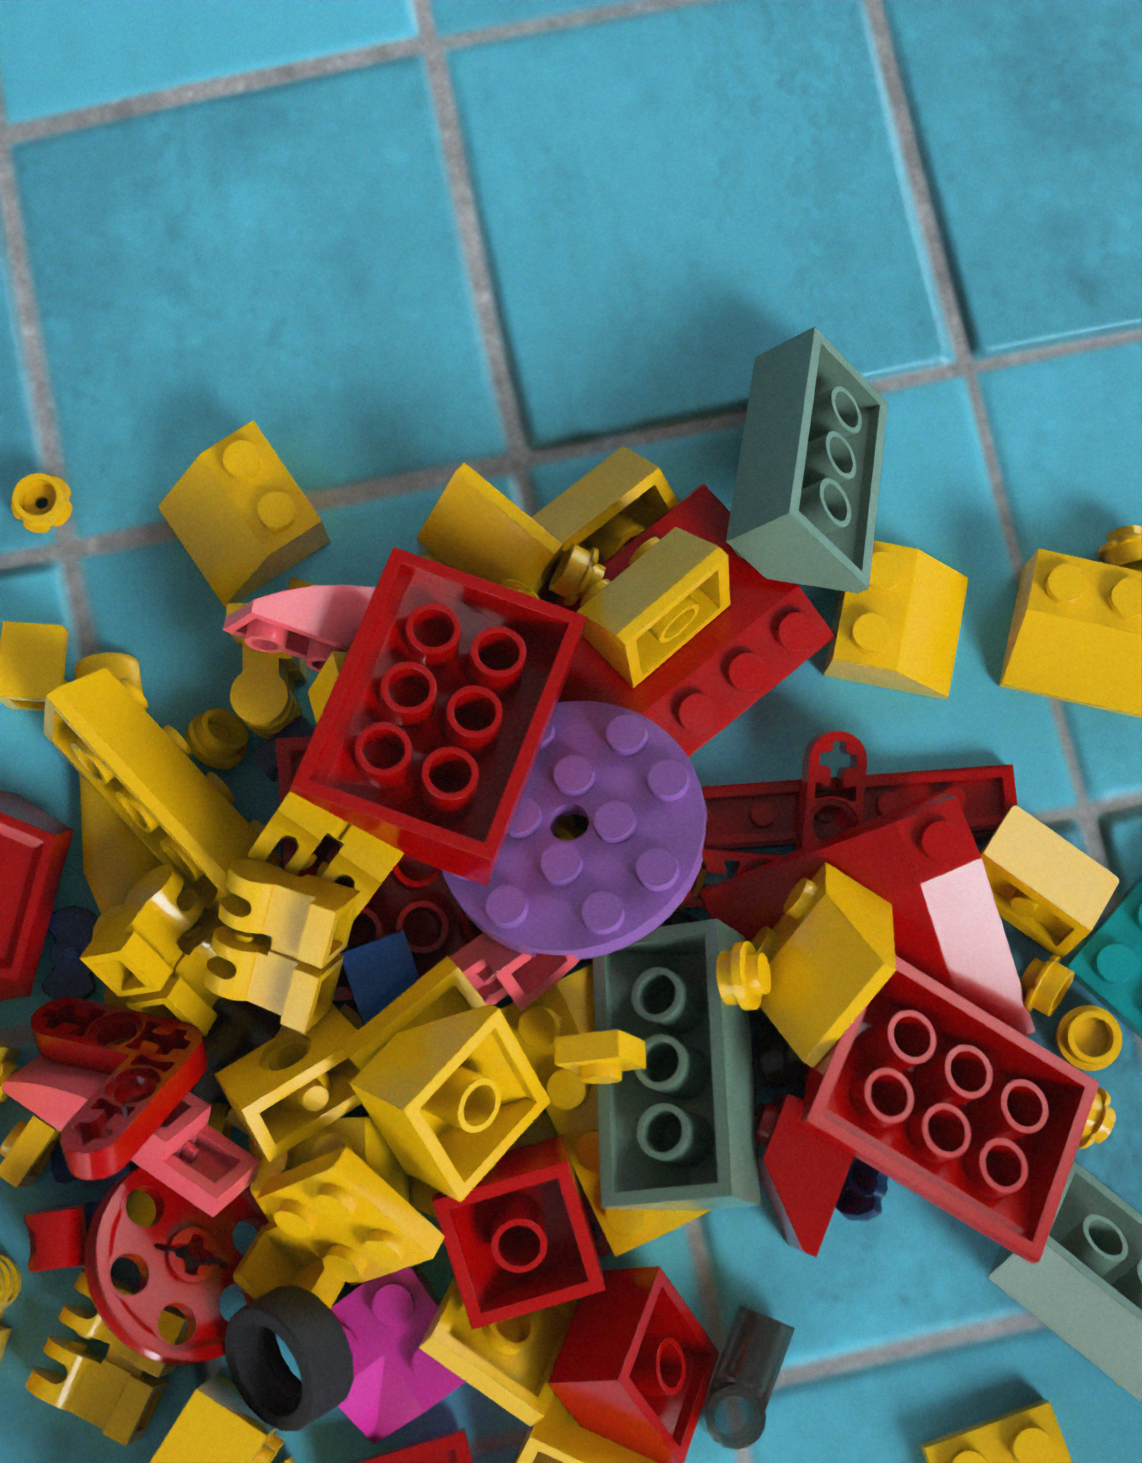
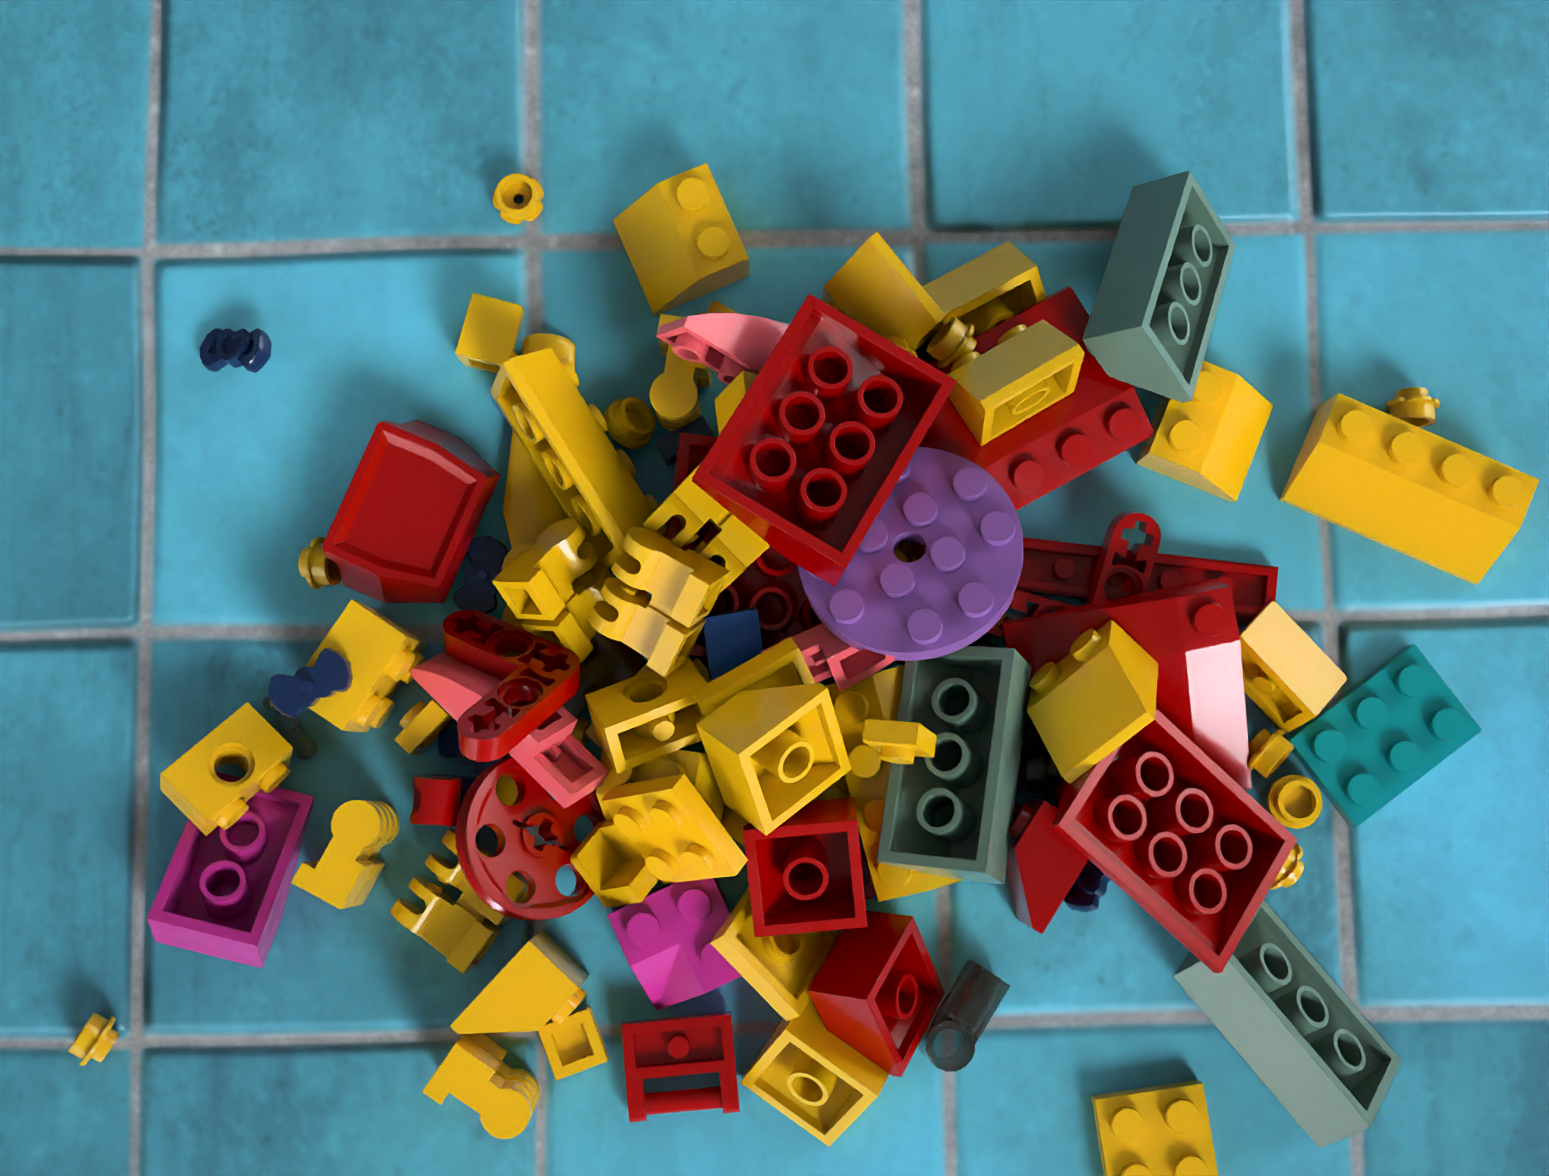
camera: 10 degrees right, 5 degrees up
(313, 1340) = (628, 919): black tyre -> none
(743, 976) = (1027, 699): yellow plate -> none

